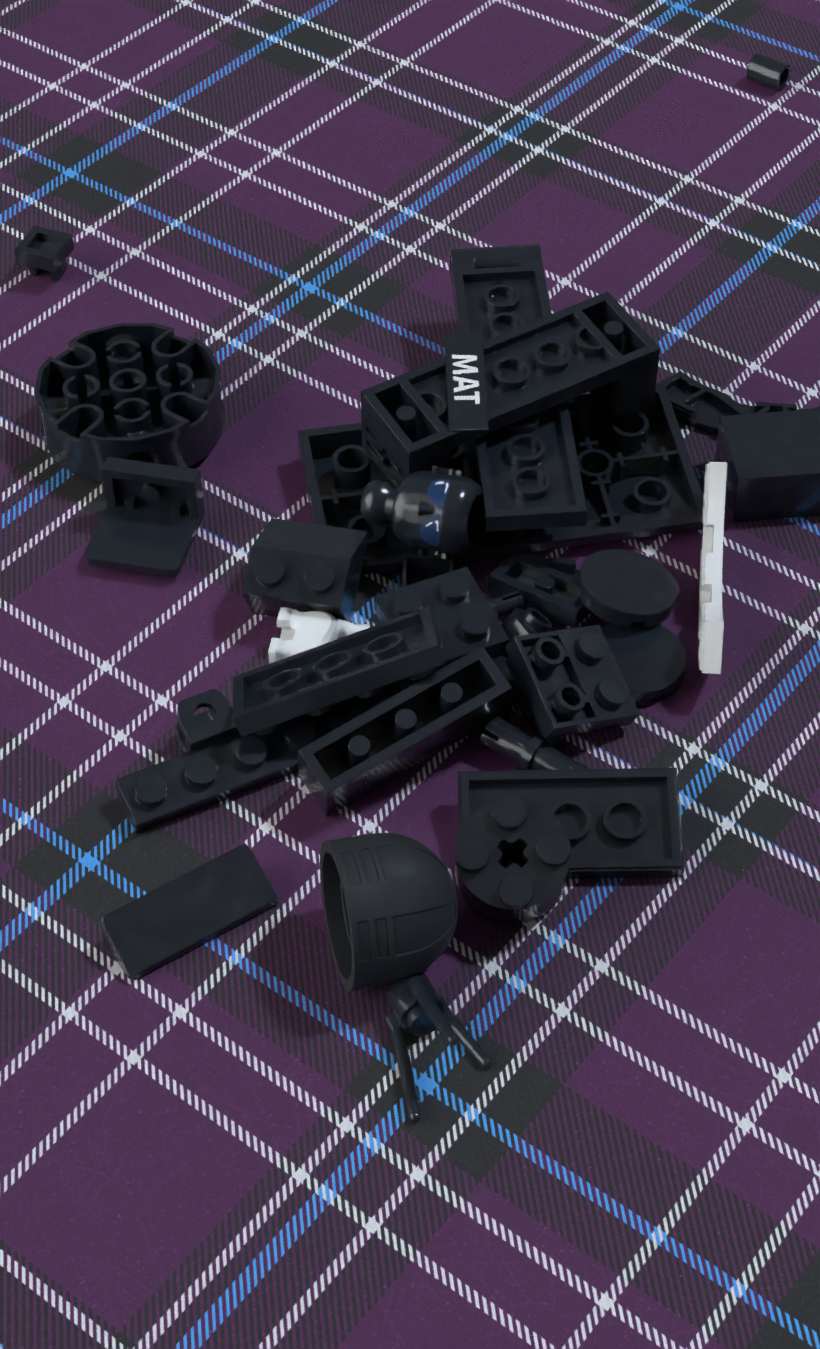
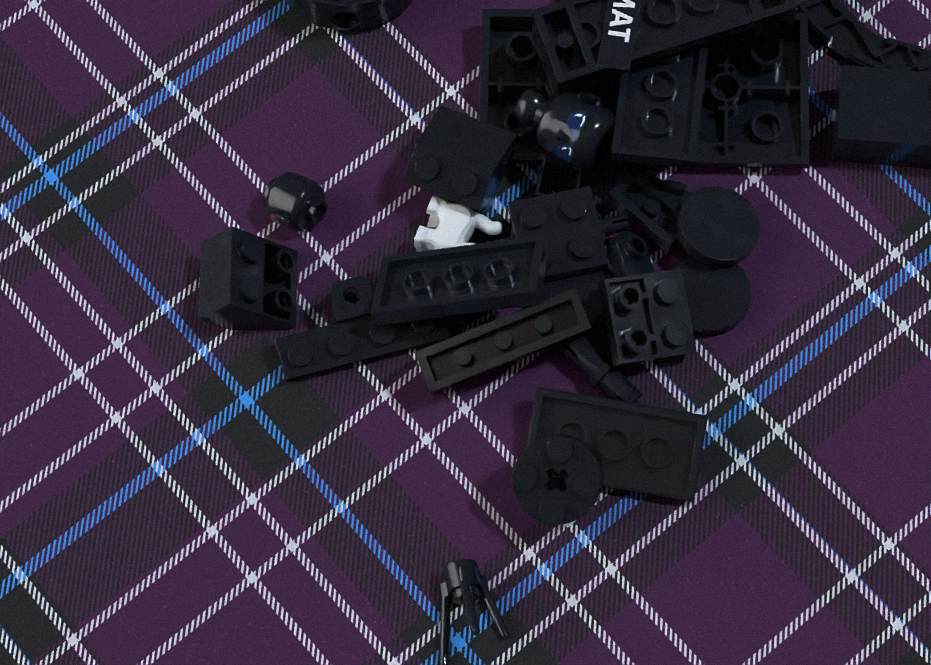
camera: 15 degrees right, 20 degrees up
(67, 730) = (247, 282): none -> black slope
(113, 642) = (295, 201): none -> black head
(147, 517) = (341, 79): black bracket -> none
(187, 912) = (311, 466): black slope -> none
(385, 907) = (455, 505): black piece -> none
(711, 561) = (791, 225): white tile -> none

